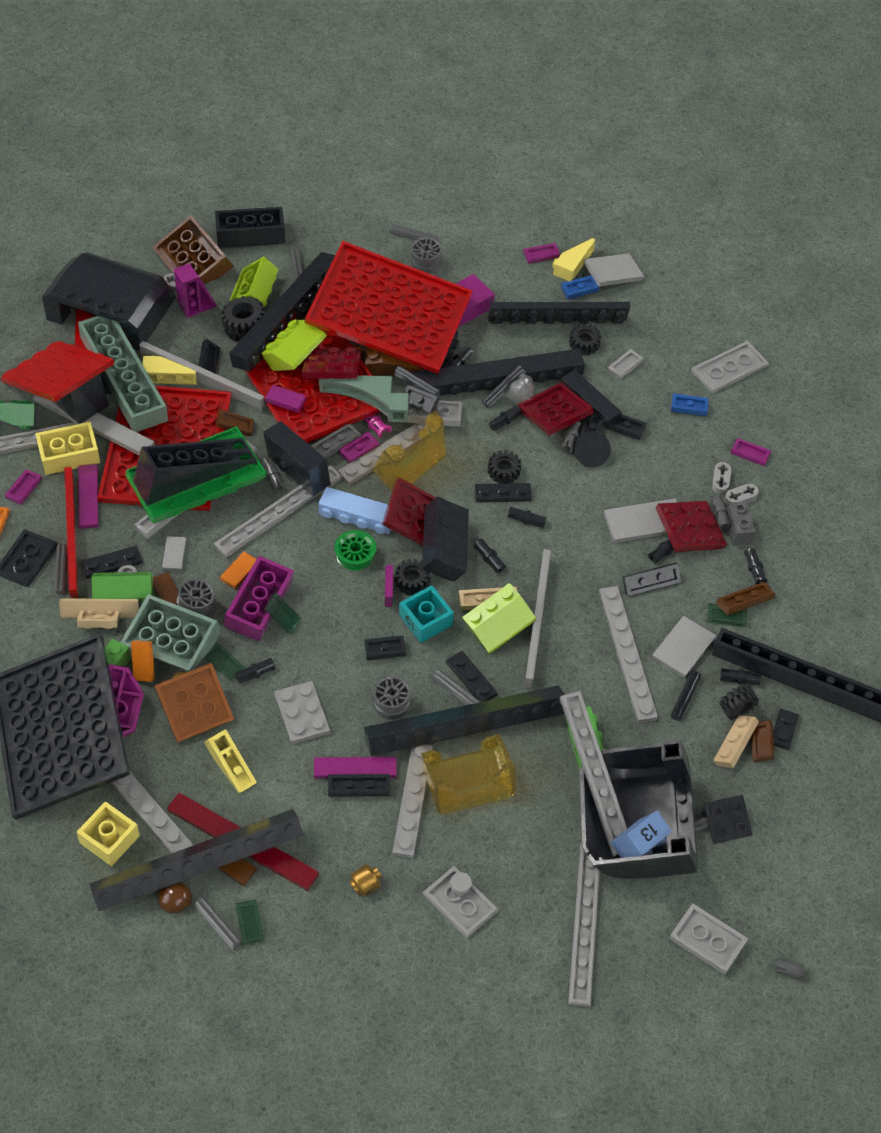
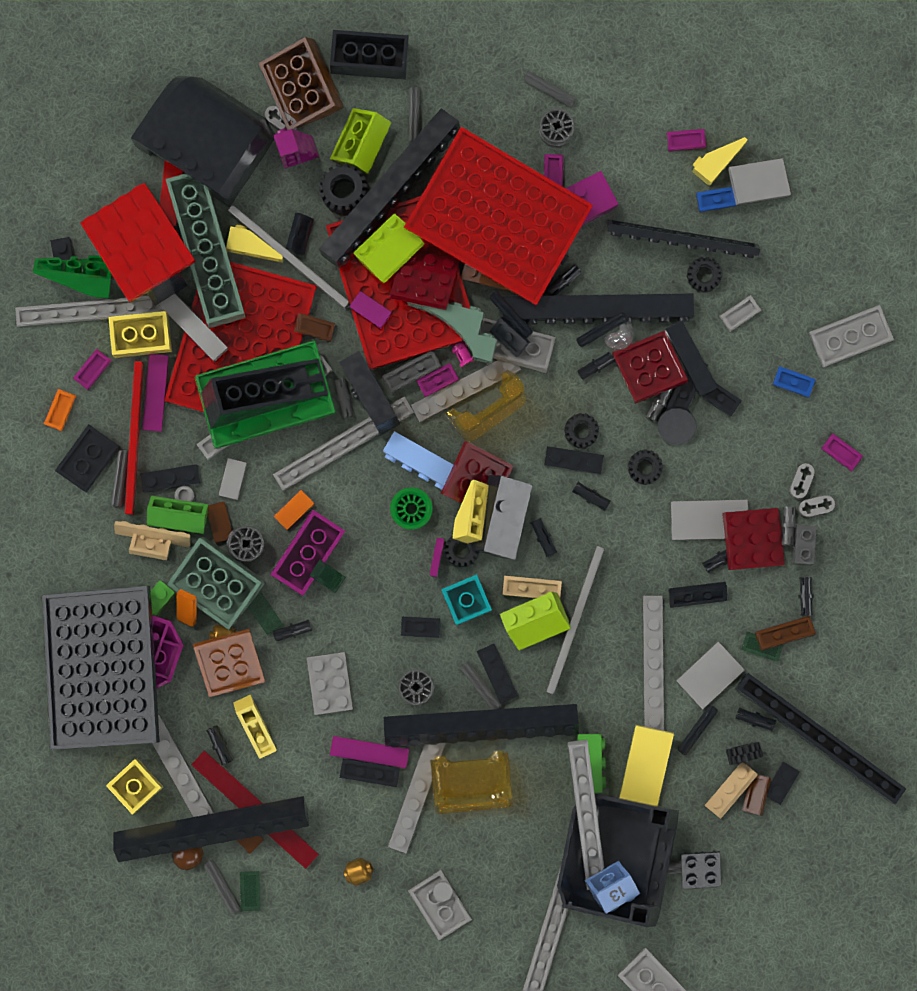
camera: 10 degrees right, 30 degrees up
(195, 785) = (219, 745): none -> black pin
(415, 538) = (471, 515): none -> light yellow slope
(568, 494) = (645, 455): none -> black tyre
(643, 718) = (646, 765): none -> light yellow tile

